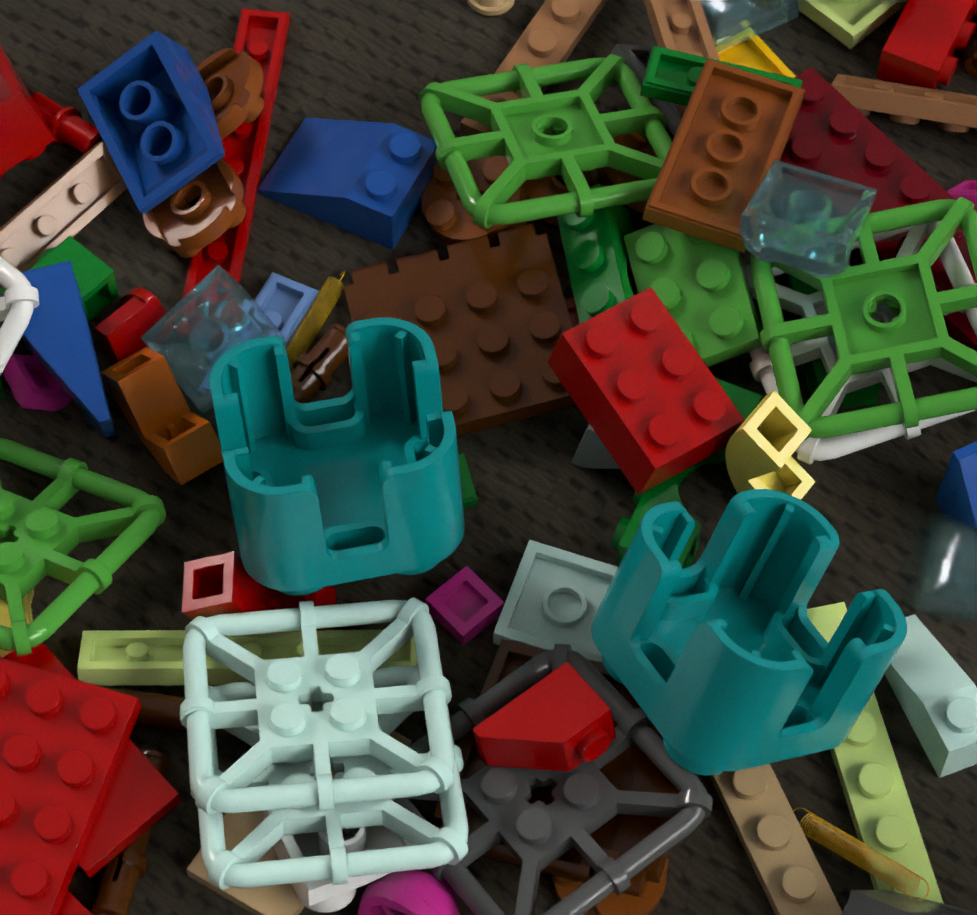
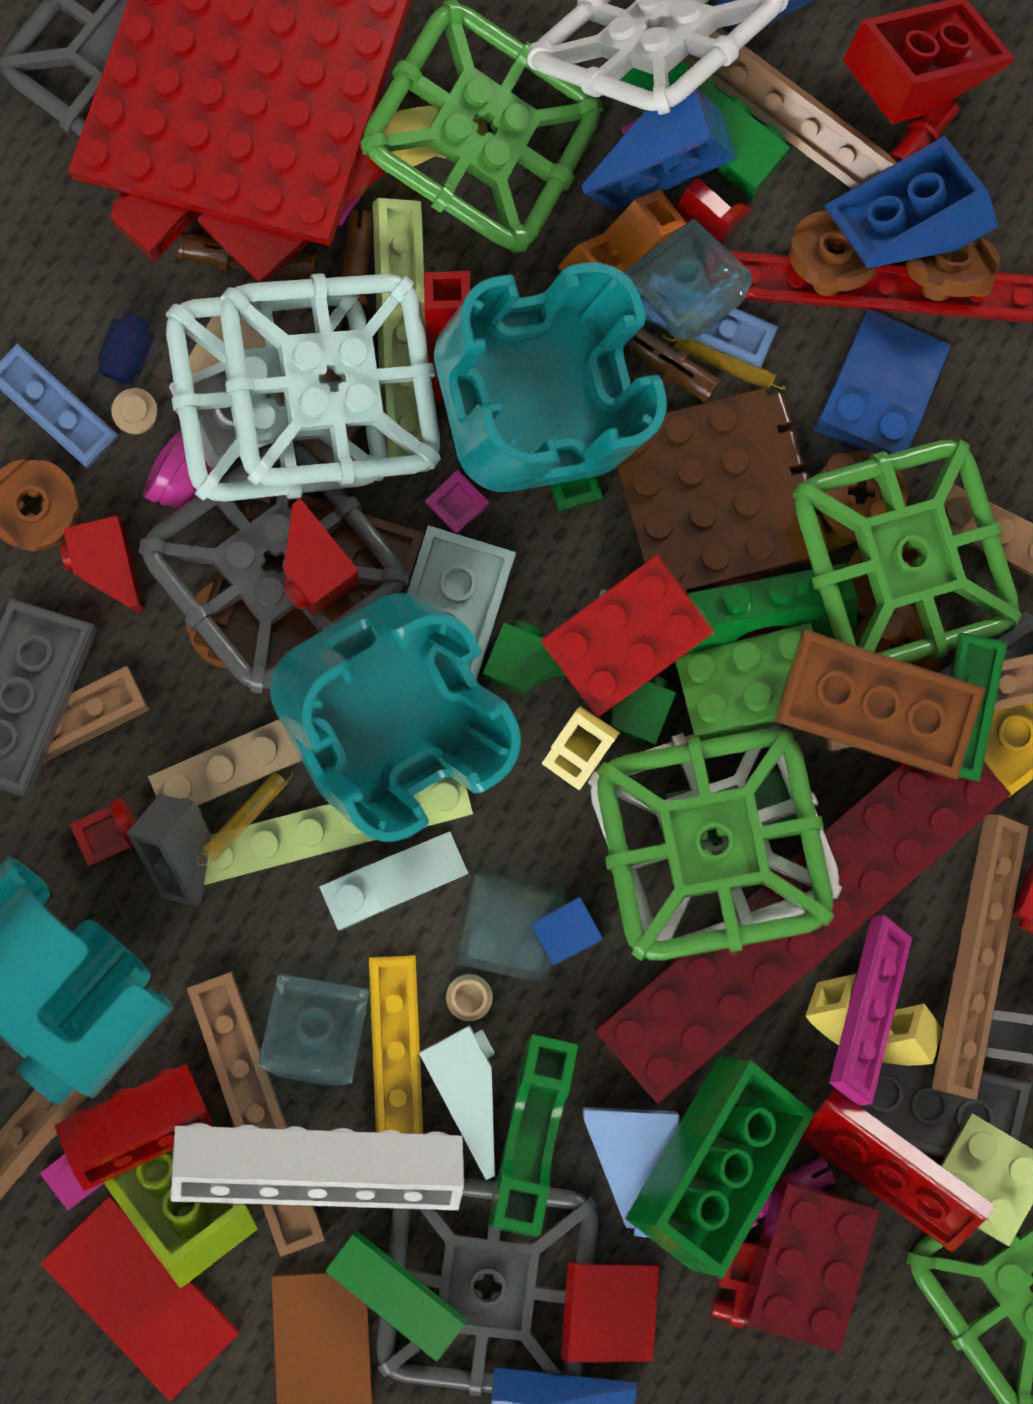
camera: 85 degrees right, 25 degrees up
(805, 219) = (796, 770): clear light blue slope -> none

